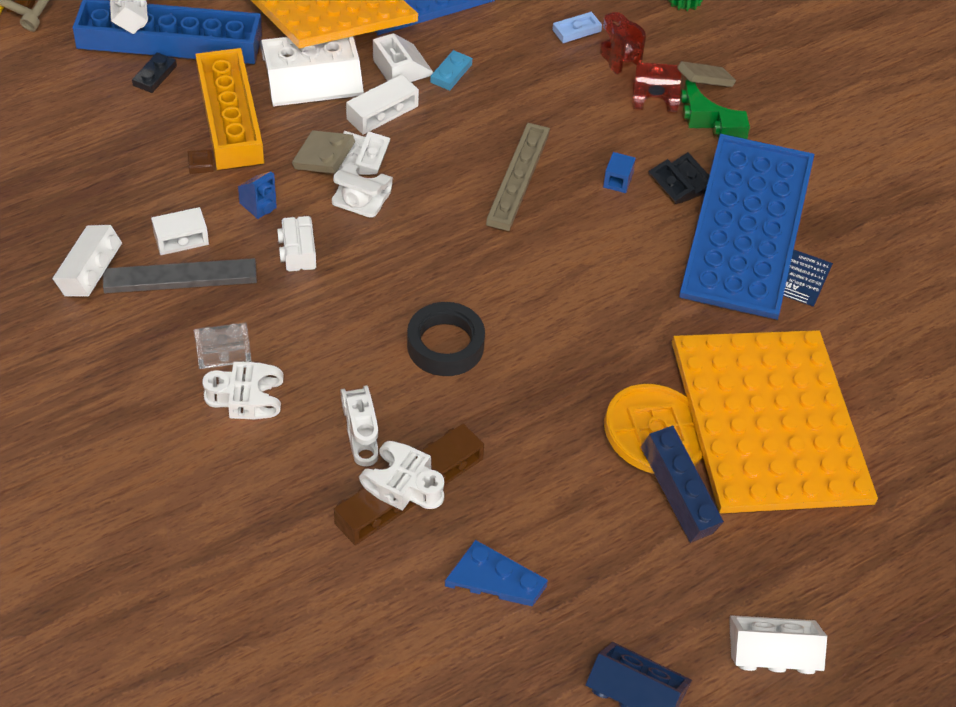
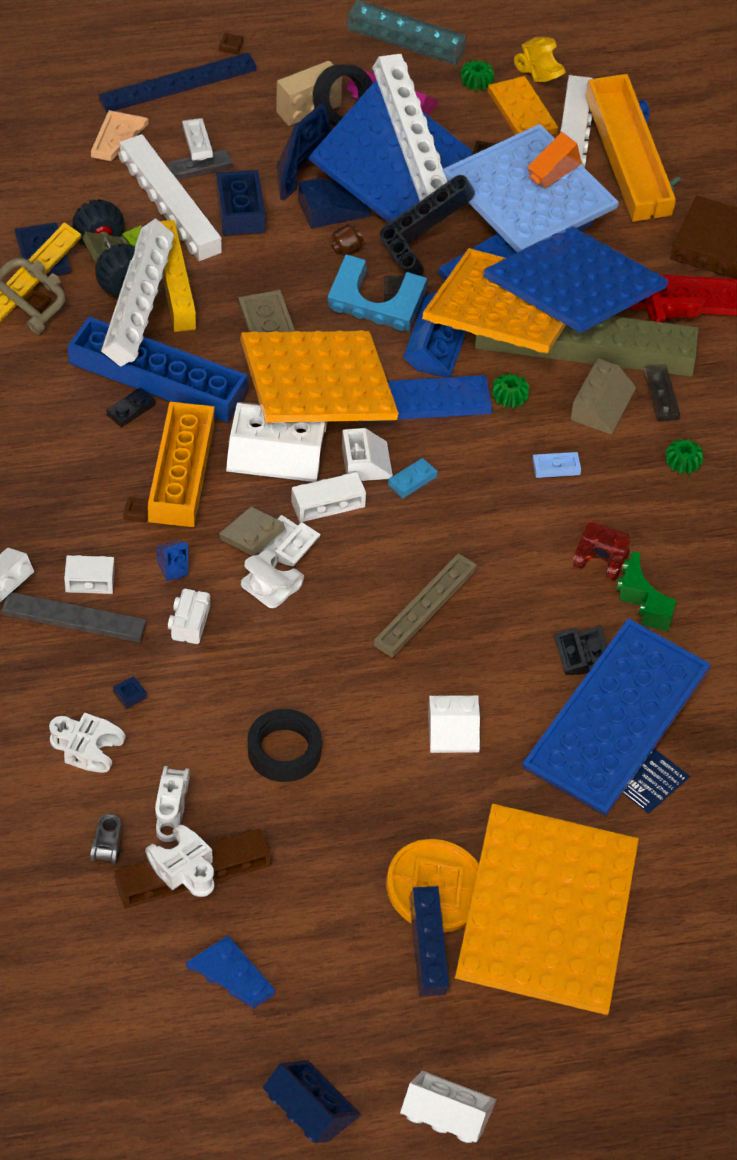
camera: 20 degrees right, 0 degrees up
(222, 345) = (82, 694): clear brick -> none
(268, 331) = (129, 692): none -> dark blue plate
(310, 484) = (107, 843): none -> flat silver piece
(598, 274) = (454, 724): none -> white slope
(619, 172) = (523, 628): blue brick -> none
(625, 42) = (589, 494): clear red piece -> none
(706, 74) = (657, 550): dark tan tile -> none

